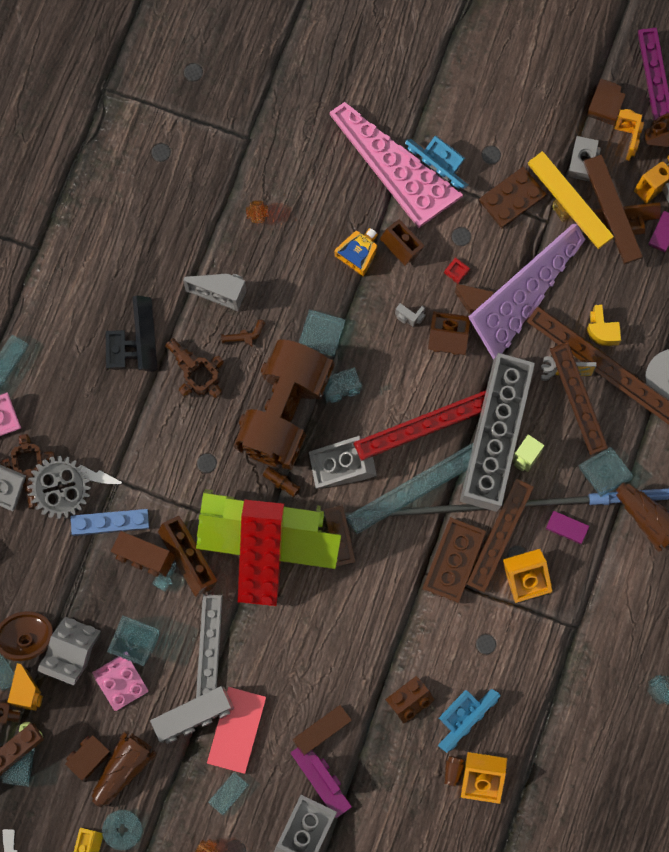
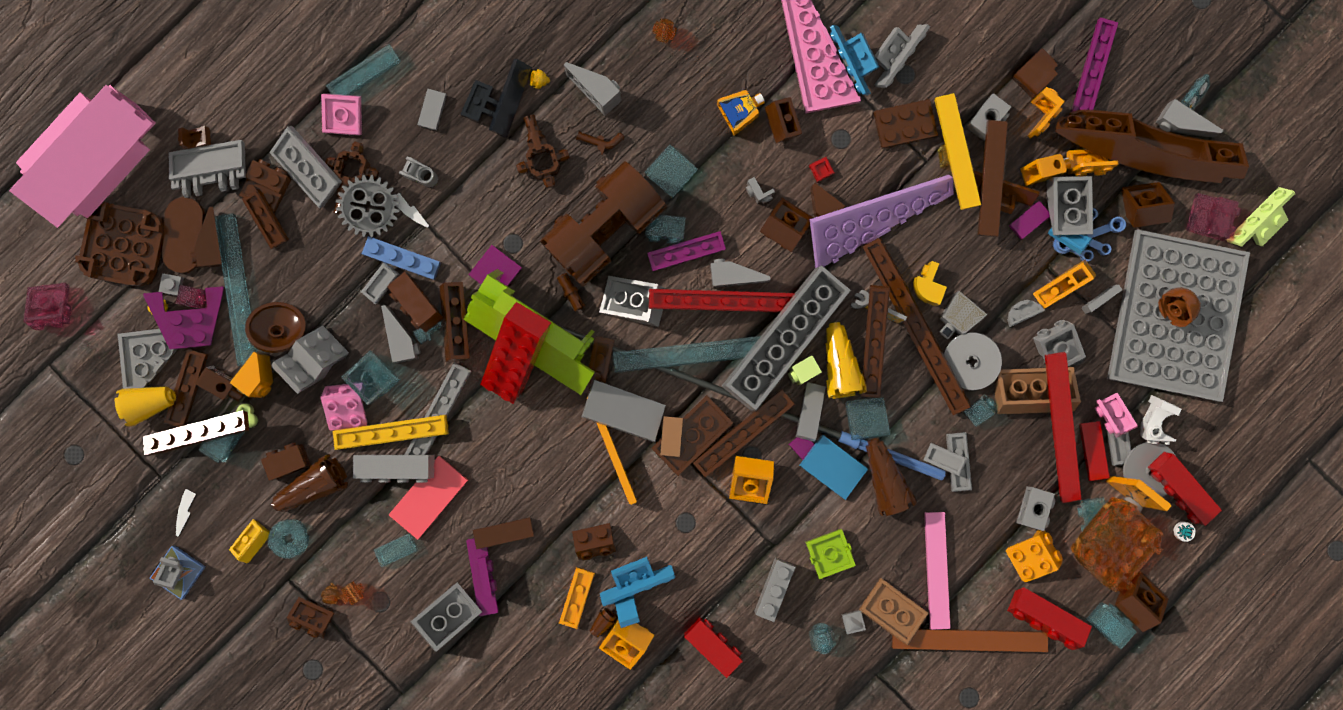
camera: 20 degrees right, 10 degrees up
(77, 376) = (432, 109): none -> light grey tile
(87, 437) = (416, 171): none -> light grey piece
(101, 553) = (377, 285): none -> light grey tile
(146, 597) = (401, 342): none -> light grey slope
(162, 305) = (538, 79): none -> yellow plate
(173, 685) = (390, 432): none -> yellow tile
(195, 488) = (493, 260): none -> magenta tile
(369, 397) = (686, 251): none -> magenta plate
(381, 565) = (623, 411): none -> light grey tile
(386, 606) = (617, 463): none -> light orange tile
(418, 759) = (576, 598): none -> light orange tile
(422, 398) = (731, 274): none -> light grey slope
(436, 568) = (671, 436): none -> medium nougat tile
(471, 746) = (627, 611): none -> dark azure tile
(473, 138) = (896, 51): none -> light grey bracket
(551, 488) = (810, 412): none -> light grey tile
(560, 434) = (842, 365): none -> yellow cone
(566, 744) = (714, 646): none -> red brick
(596, 529) = (833, 467): none -> dark azure tile
(596, 664) = (774, 589): none -> light grey brick
(631, 609) = (830, 553): none -> lime plate
(643, 342) = (960, 315): none -> light grey torso

